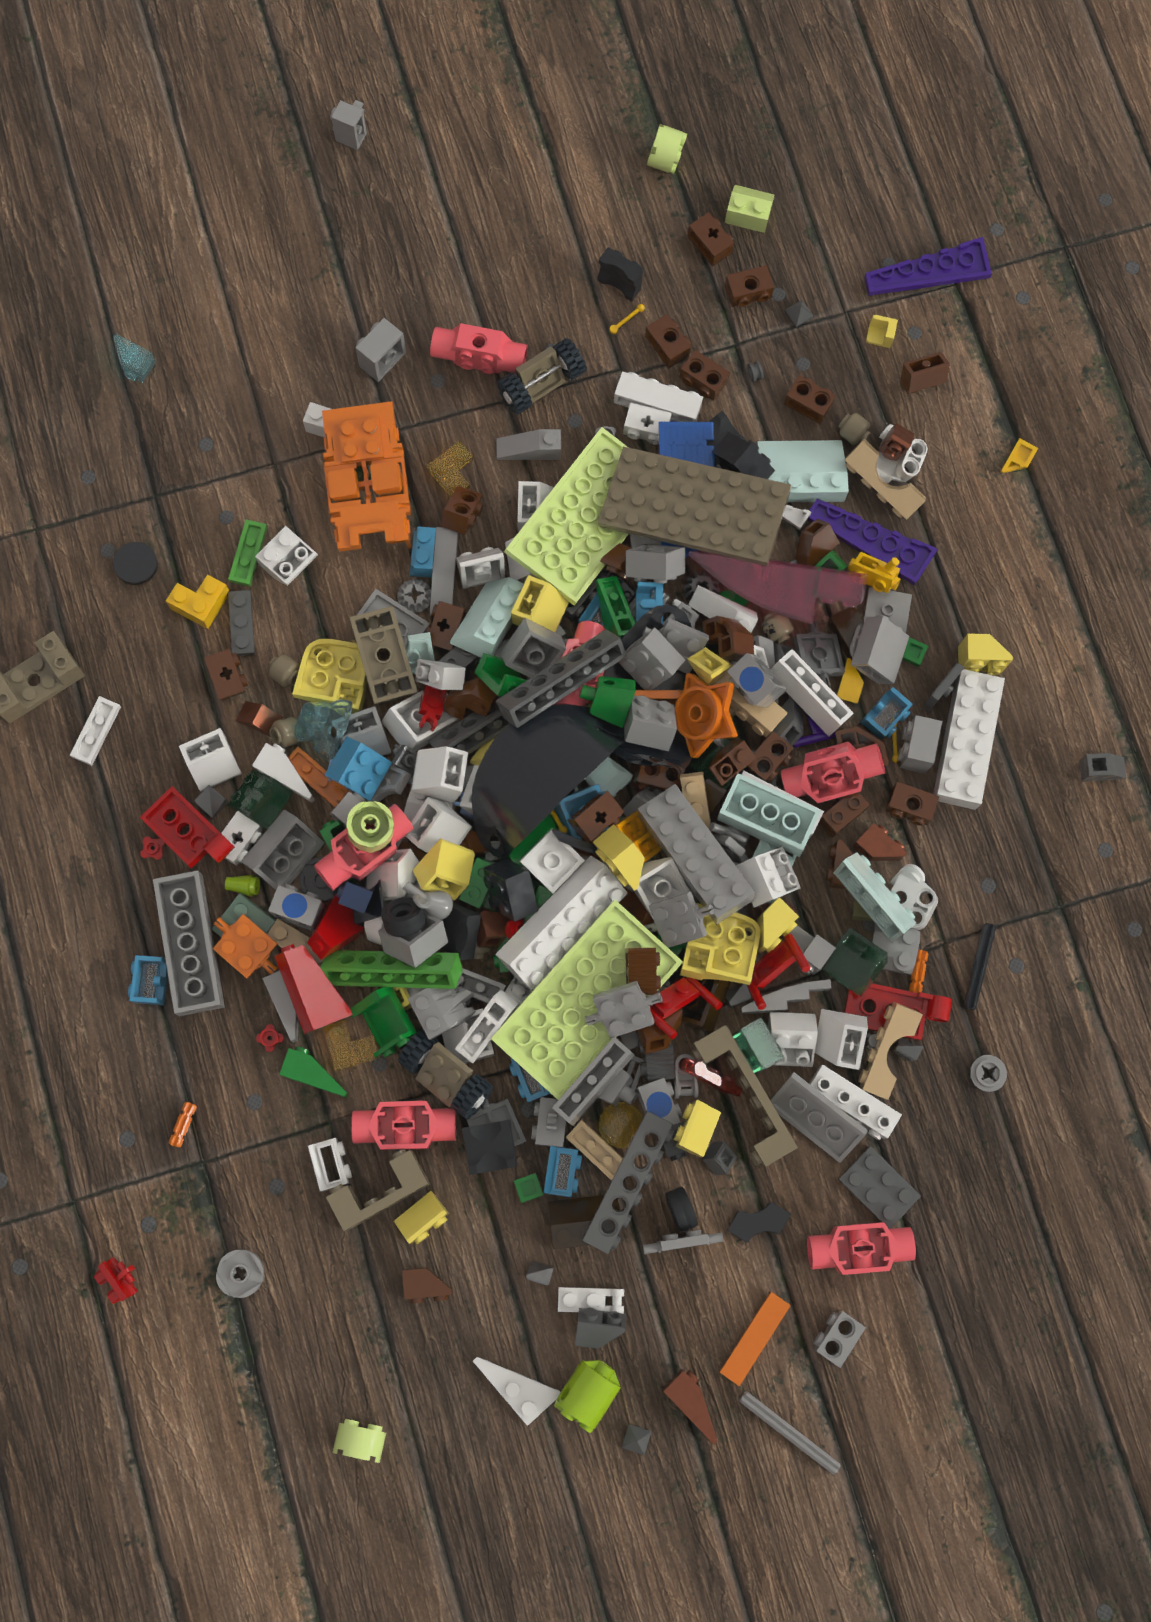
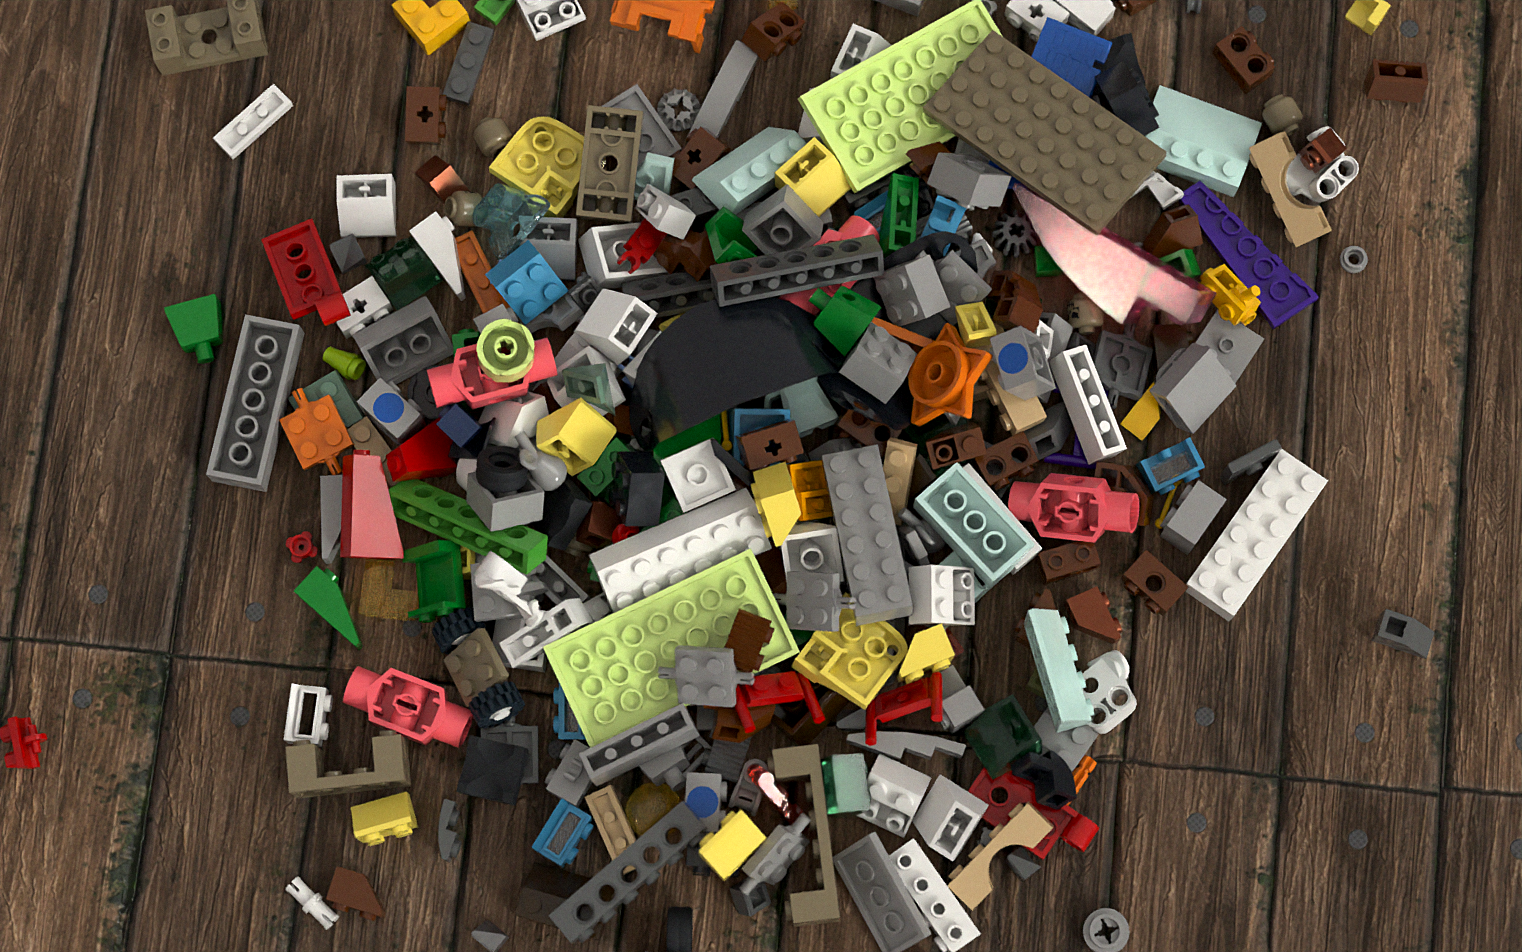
camera: 30 degrees right, 0 degrees up
(118, 902) = (197, 325): none -> green torso
(148, 980) = (194, 427): dark azure window -> none
(157, 853) = (264, 287): red plate -> none
(182, 1124) = (165, 603): orange axle -> none
(227, 1270) = (171, 805): light grey plate -> none
(393, 1306) = (312, 902): none -> white pin
(423, 552) = (708, 62): dark azure window -> none
(441, 825) = (590, 384): none -> sand green slope
(442, 1000) = (507, 582): none -> white piece
(477, 1214) = (448, 840): none -> dark grey slope
(481, 567) = (767, 106): white slope -> none
(528, 1187) = (518, 836): green tile -> none
(714, 605) = (1021, 259): white slope -> none
(728, 1124) = (776, 854): none -> light grey plate
(903, 978) = (1051, 778): none -> black brick
(914, 652) = (1237, 407): green tile -> none
(953, 508) = (1356, 252): none -> light grey plate
(979, 966) = (1151, 804): black axle -> none
(983, 654) = (1315, 443): light yellow slope -> none
(1019, 457) = (1469, 227): yellow slope -> none

